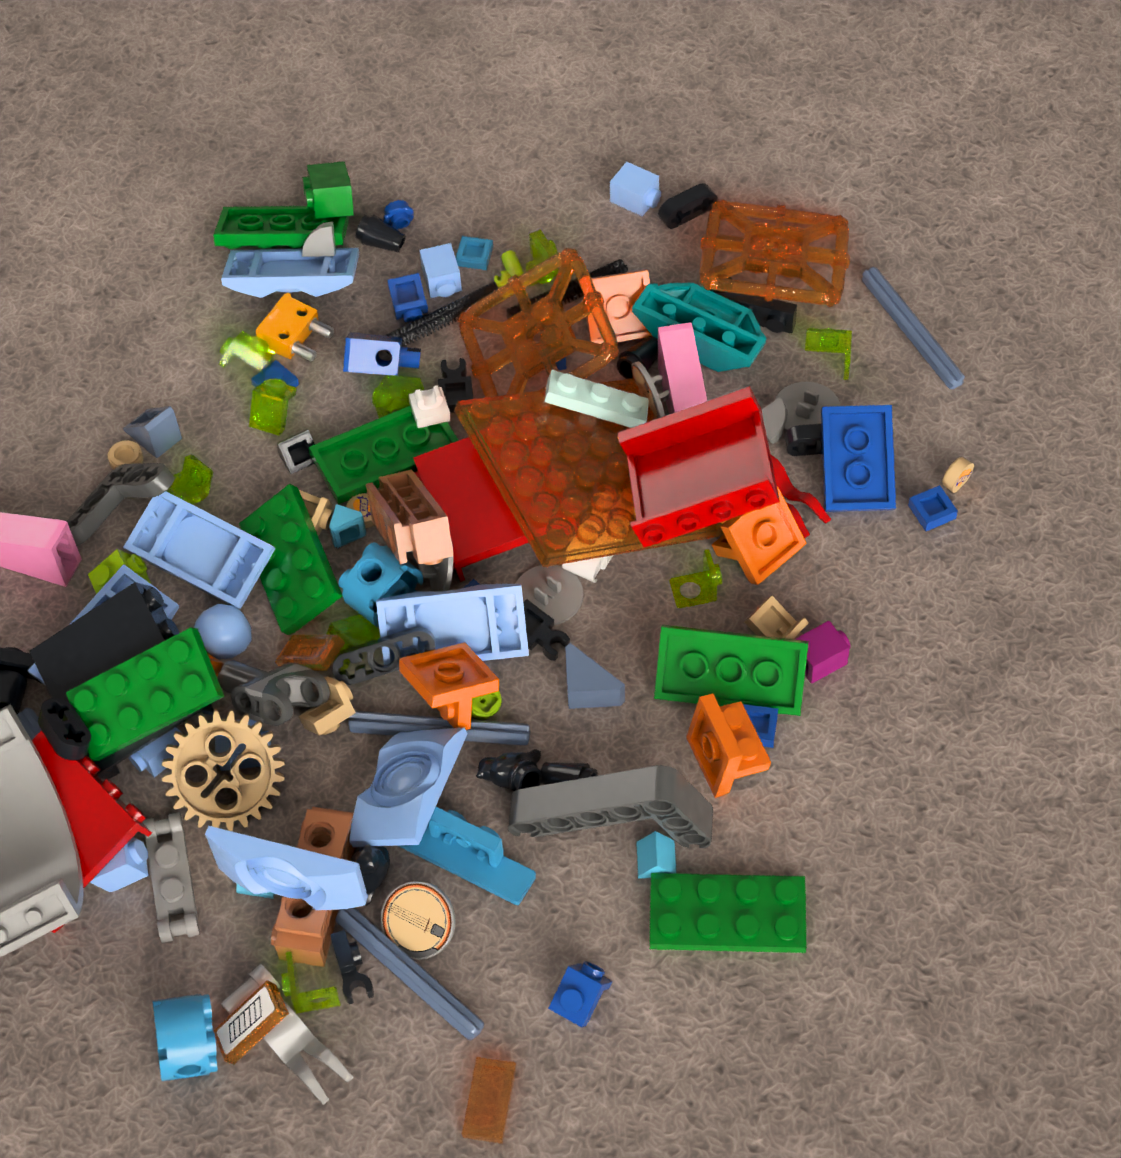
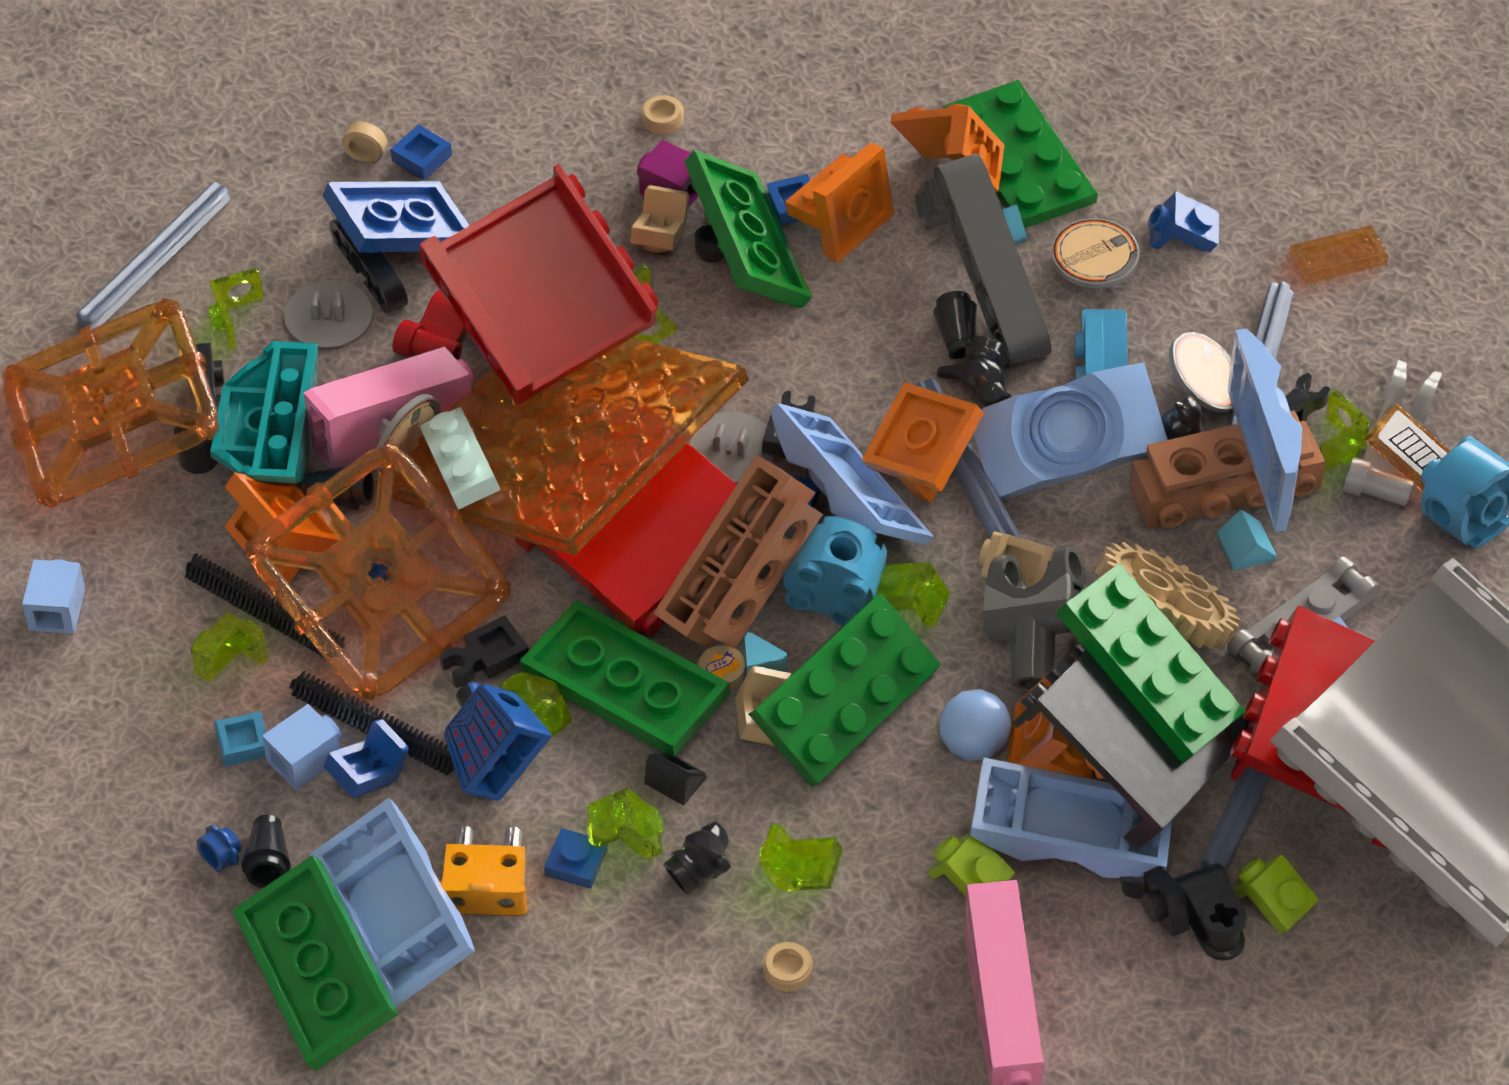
camera: 120 degrees left, 5 degrees down
(71, 726) = (1239, 727): black beam -> none
(125, 481) = (860, 928): dark grey beam -> none
(155, 430) = (733, 943): sand blue slope -> none
(199, 548) = (889, 782): light blue slope -> none
(224, 436) = (699, 858): none -> black animal
(248, 348) = (554, 899): clear neon green bracket -> none
(311, 651) = (959, 607): clear orange tile -> none
(320, 242) = (341, 875): light grey tile -> none
(328, 190) = (228, 924): green brick -> none
(377, 670) = (926, 523): black beam -> none
(429, 407) = (542, 645): white tile -> none
(512, 268) = (260, 678): lime arm -> none
(582, 904) = (1095, 253): none -> piece
(590, 683) = (834, 354): sand blue slope -> none
(687, 205) = (57, 532): black beam -> none
(730, 843) = (951, 134): none -> orange bracket
(775, 419) = (367, 330): light grey tile -> none
(900, 681) = (662, 114): none -> tan tile

